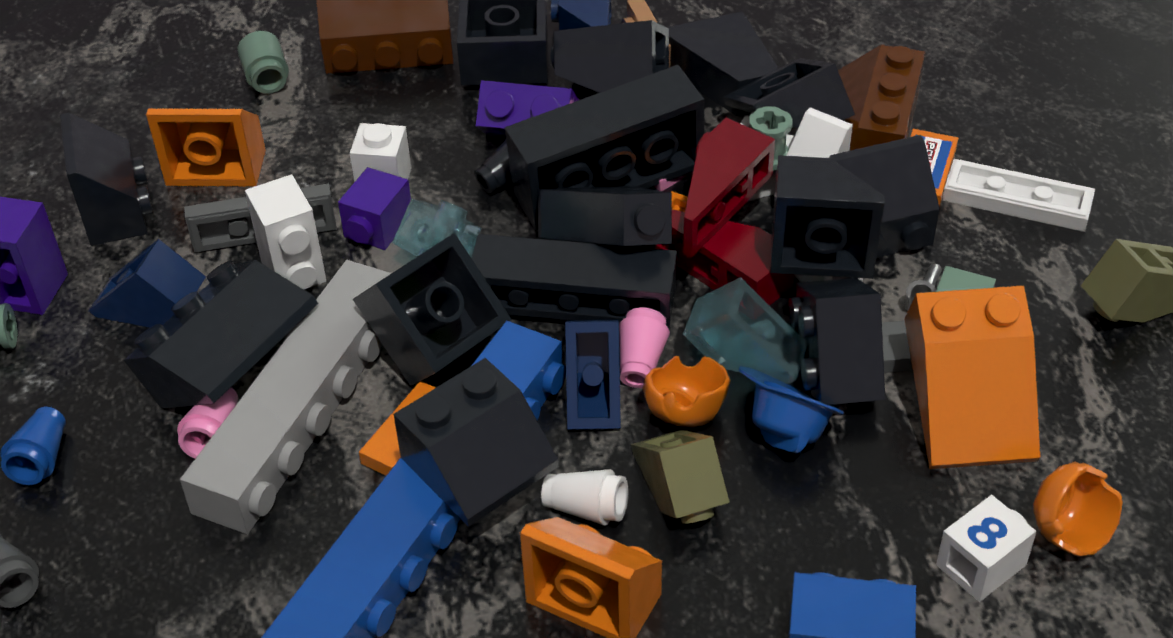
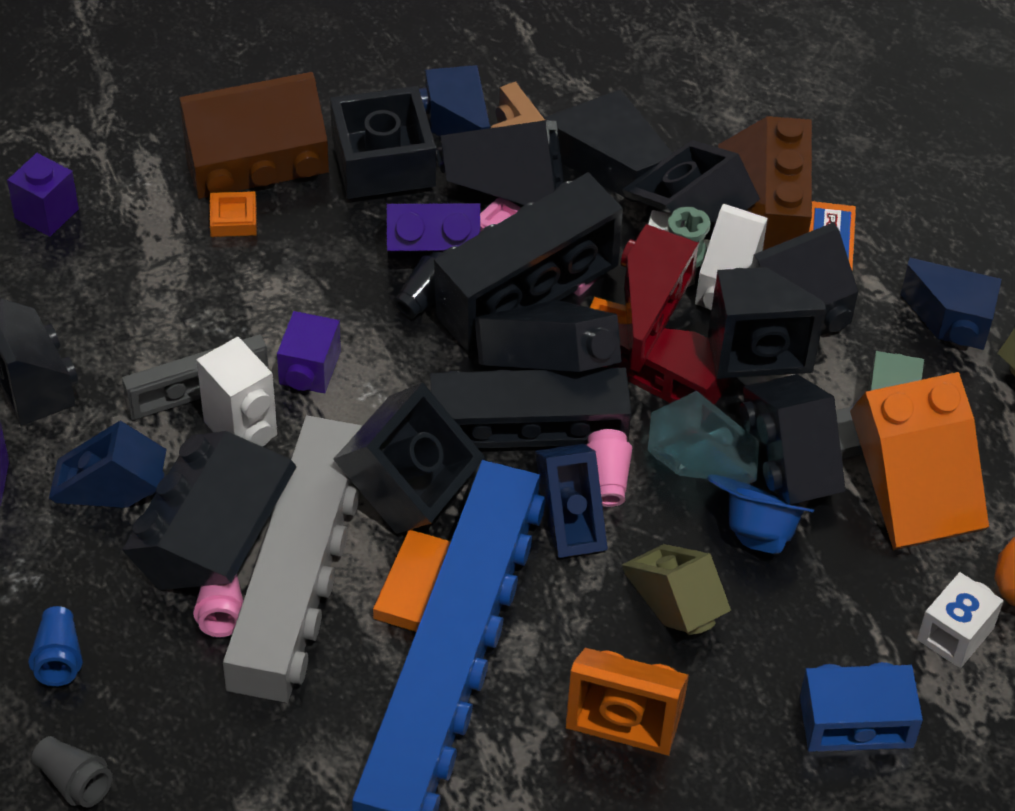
camera: 15 degrees left, 5 degrees up
(180, 51) = (43, 194): none -> dark purple brick
(207, 146) = (116, 306): orange slope -> none
(263, 61) = (134, 196): sand green brick -> none
(351, 87) = (233, 214): none -> orange tile
(381, 149) = (296, 289): white brick -> none
(430, 223) = (380, 372): clear light blue brick -> none
(474, 441) = (496, 588): black slope -> none
(588, 495) = (597, 620): white cone -> none
(686, 393) = (664, 508): orange hair -> none
(923, 286) = (856, 372): flat silver hand -> none
(1018, 194) = (889, 254): white tile -> none
(1042, 232) = (952, 301): none -> dark blue slope

